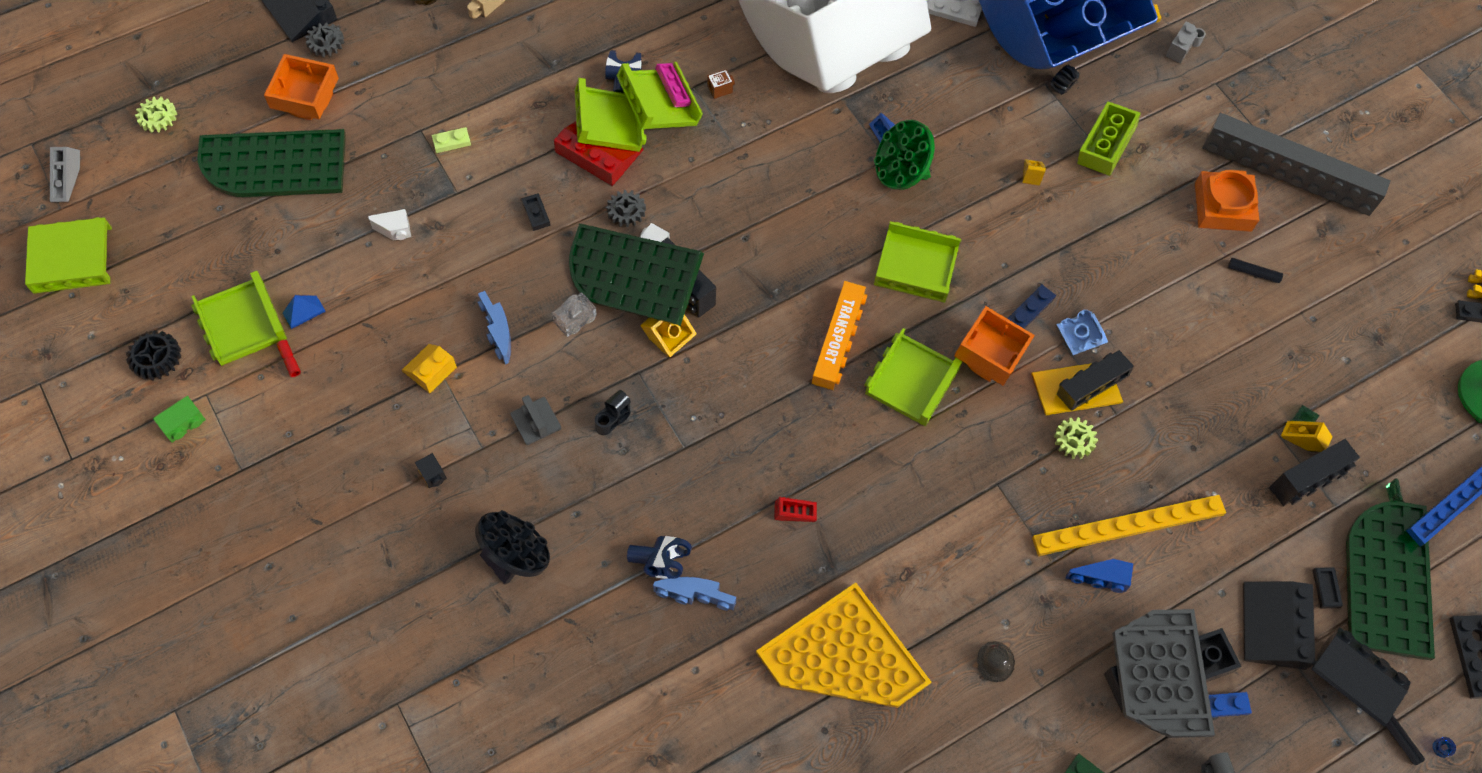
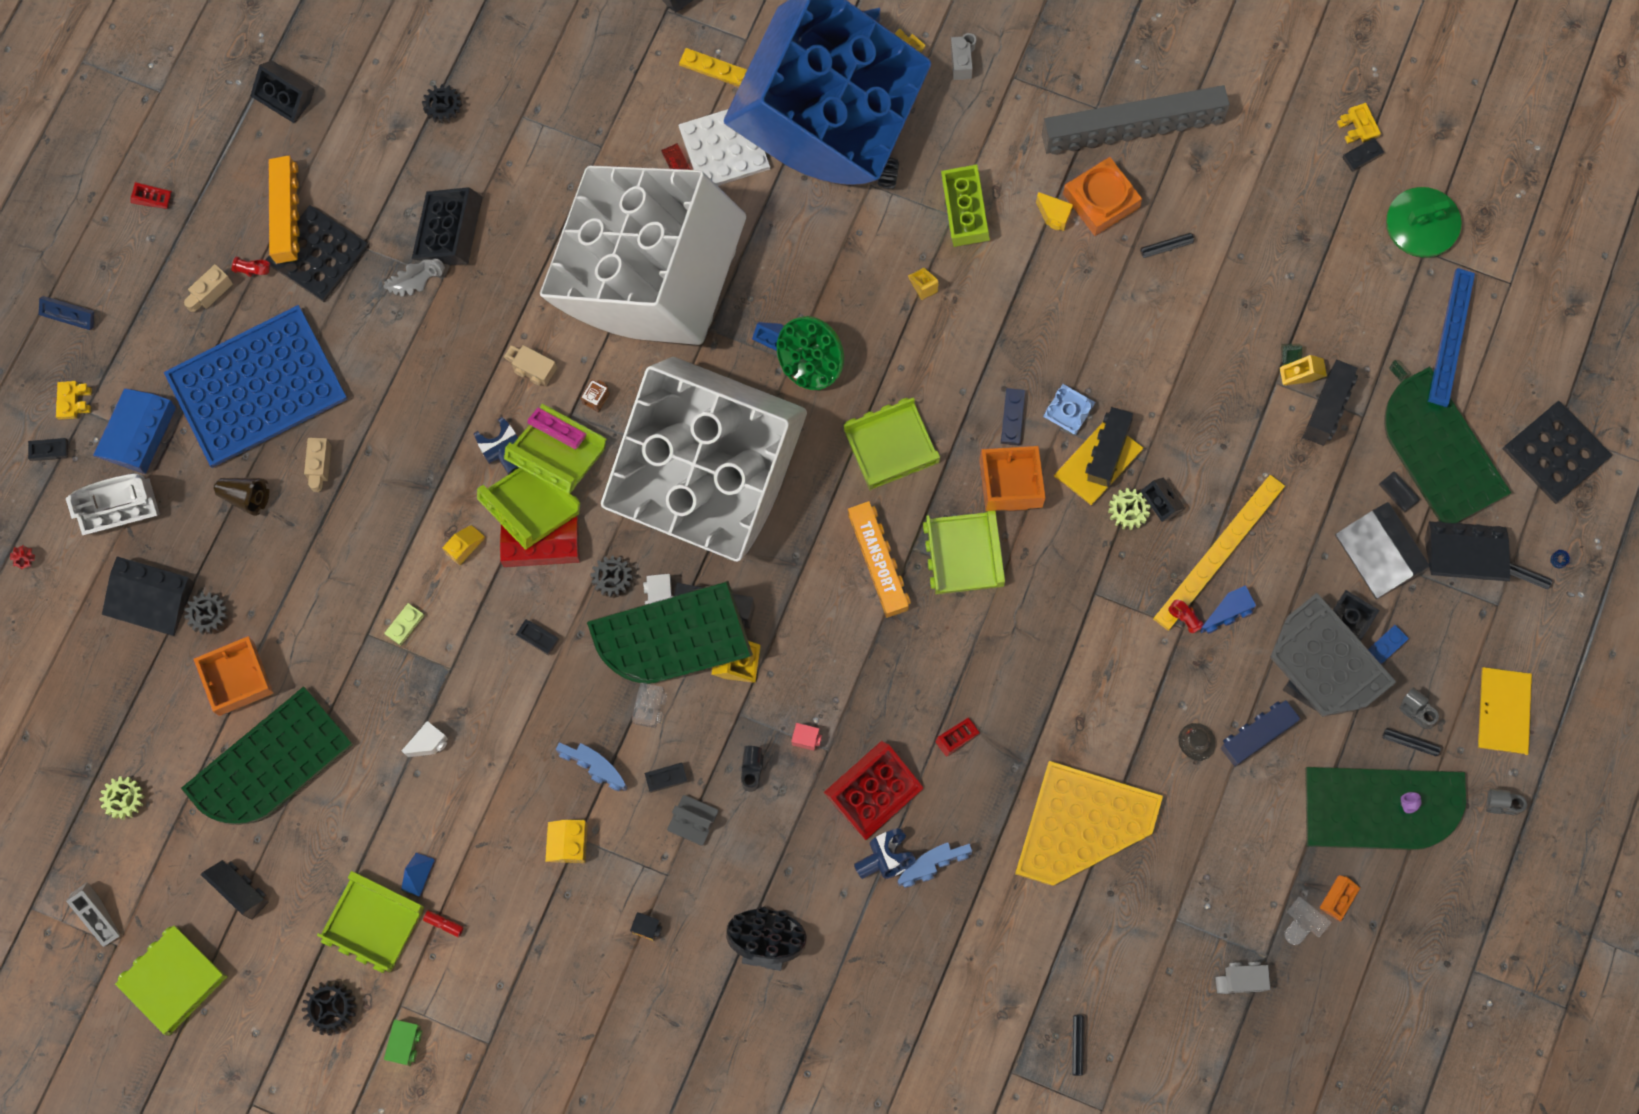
camera: 30 degrees left, 10 degrees up
(168, 225) = (236, 888): none -> black slope
(539, 115) = (463, 544): none -> yellow slope
(542, 375) = (666, 777): none -> black plate
(674, 422) = (806, 737): none -> coral brick
(692, 36) = (531, 364): none -> tan brick
(694, 501) = (873, 790): none -> red slope
(760, 162) = (702, 457): none -> white piece
(1057, 693) = (1260, 733): none -> dark blue brick
(1063, 550) = (1186, 614): none -> red connector
(1110, 449) = (1162, 499): none -> black brick
(1178, 187) = (1054, 211): none -> yellow slope

